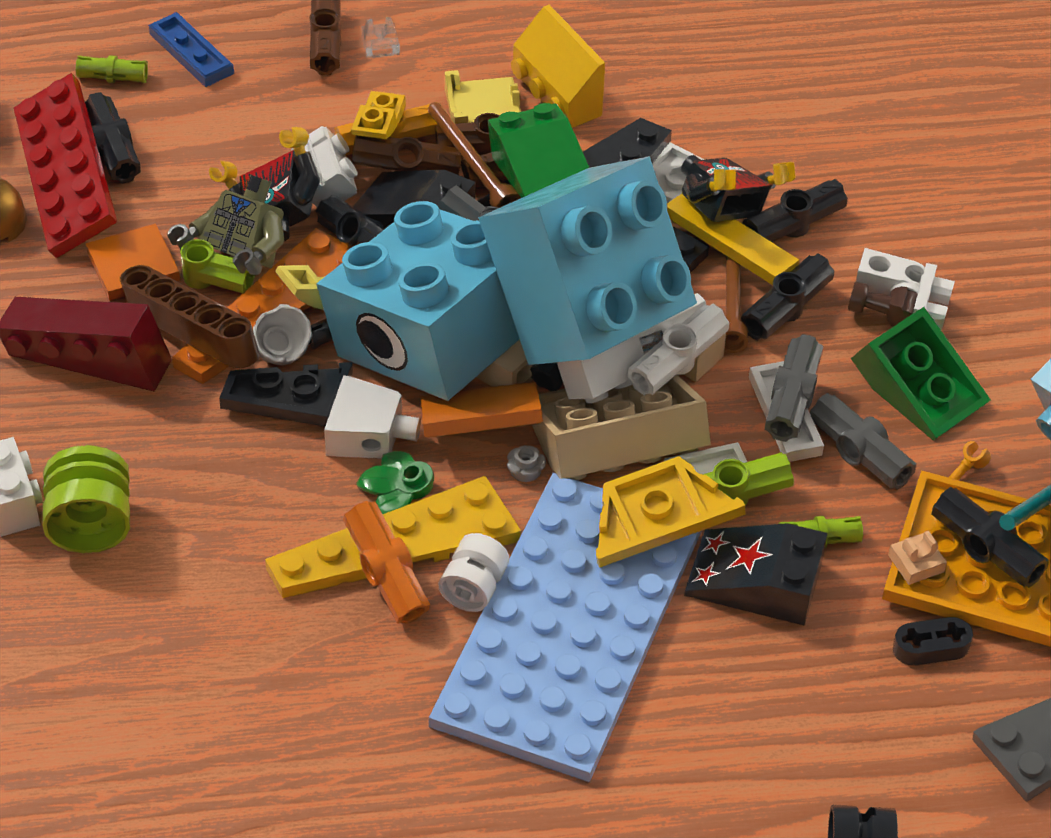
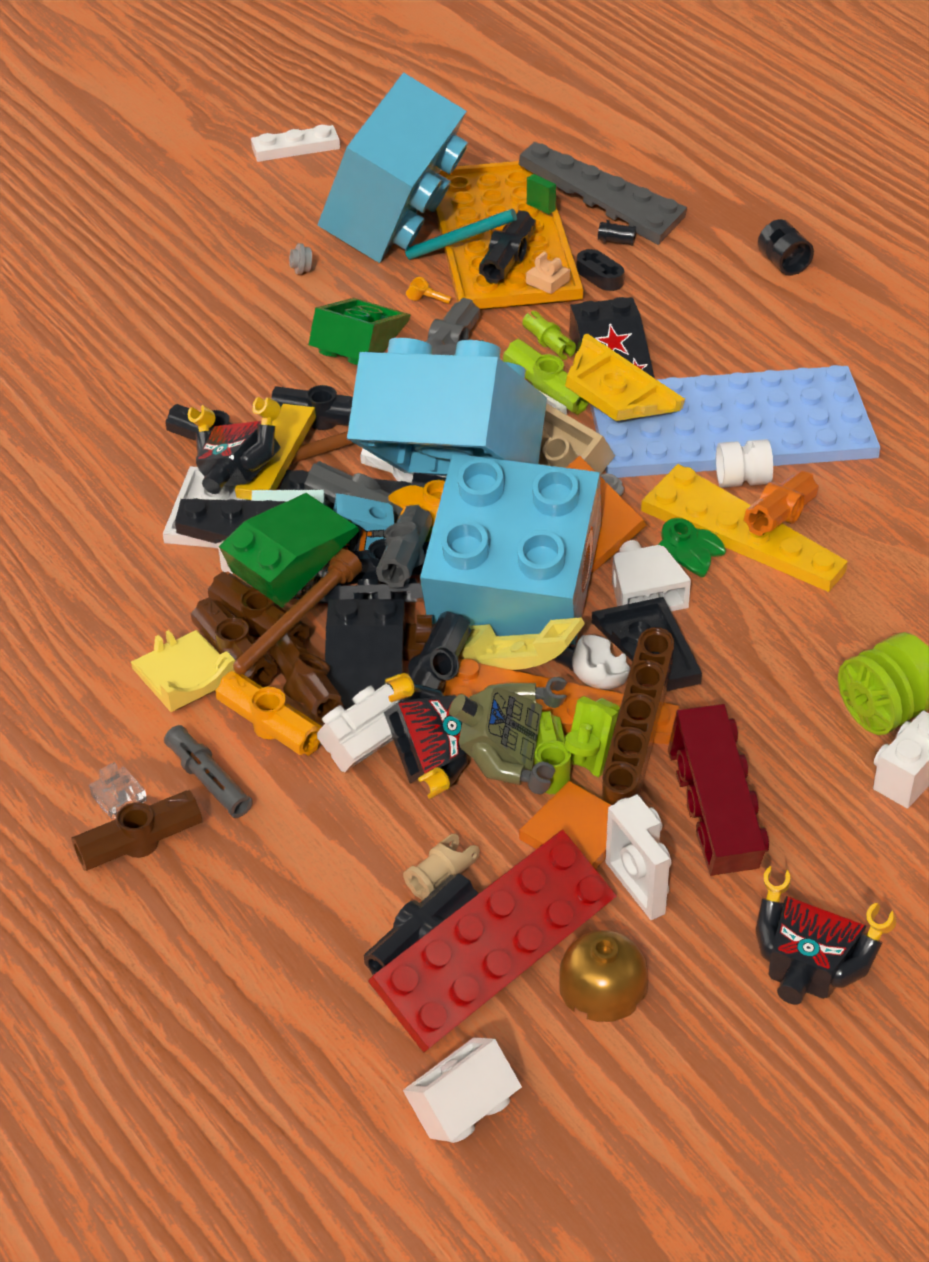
camera: 115 degrees left, 5 degrees down
(54, 253) = (637, 855): none -> white plate
(112, 69) = (305, 994): lime pin -> none
(157, 168) = (439, 865): none -> tan piece
(191, 49) = (222, 947): blue tile -> none
(199, 275) = (591, 733): none -> lime hips
(359, 84) = (183, 745): none -> dark grey pin
(379, 115) = (297, 688): yellow slope -> none
(560, 67) = (114, 616): yellow slope -> none
(899, 288) = (274, 349): white hips -> none
(1008, 683) = (616, 233): none -> black pin

